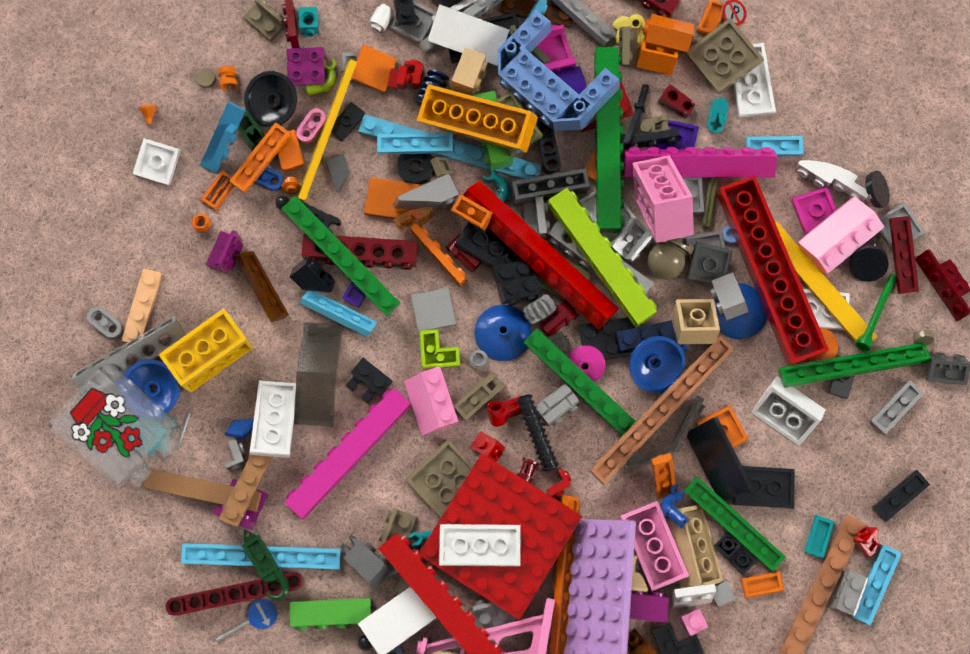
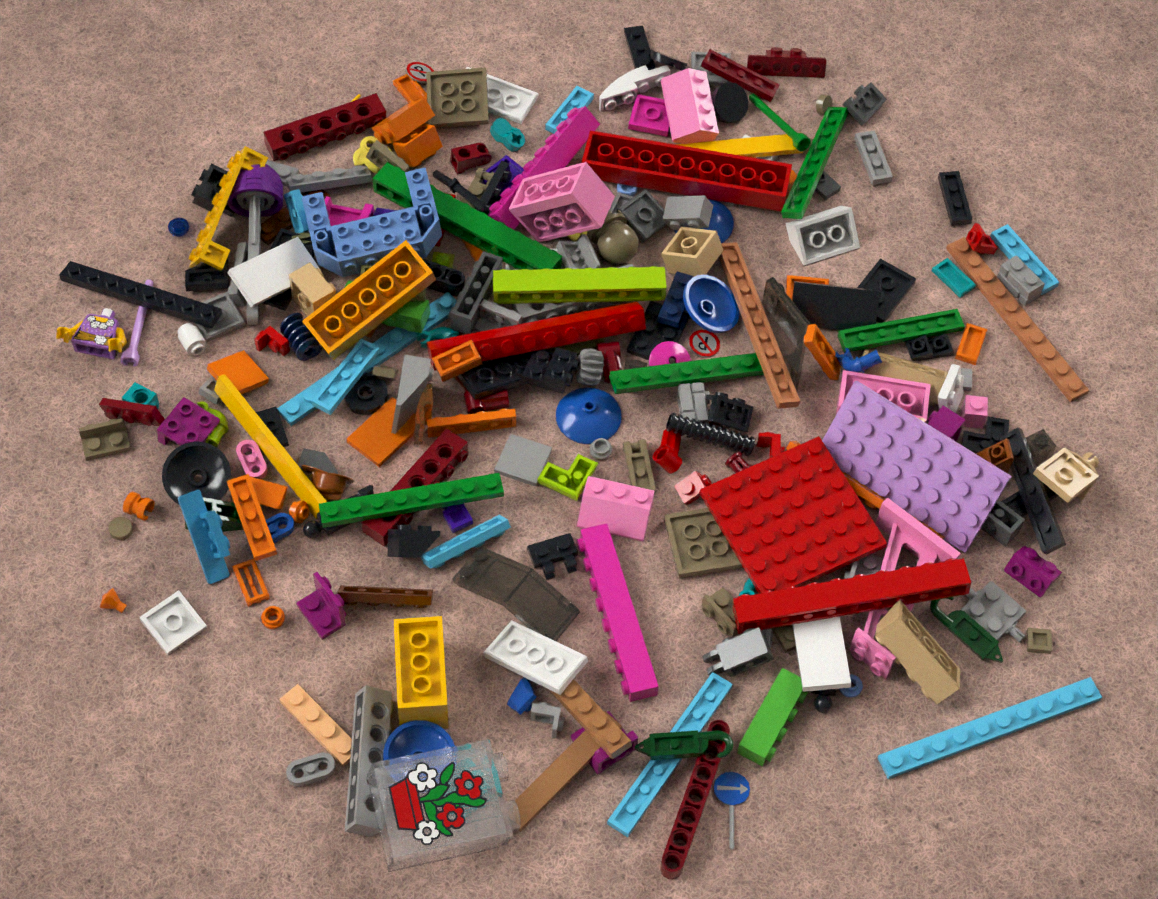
camera: 60 degrees left, 20 degrees down
(322, 188) = (328, 484): none -> dark orange piece
(399, 78) = (268, 355): red bracket -> none
(479, 545) = (792, 535): white tile -> none
(566, 144) = (444, 259): none -> clear neon green plate
(567, 435) = (729, 412): none -> black bracket
(621, 379) = (704, 343): none -> piece
(878, 159) = (638, 47): none -> black plate

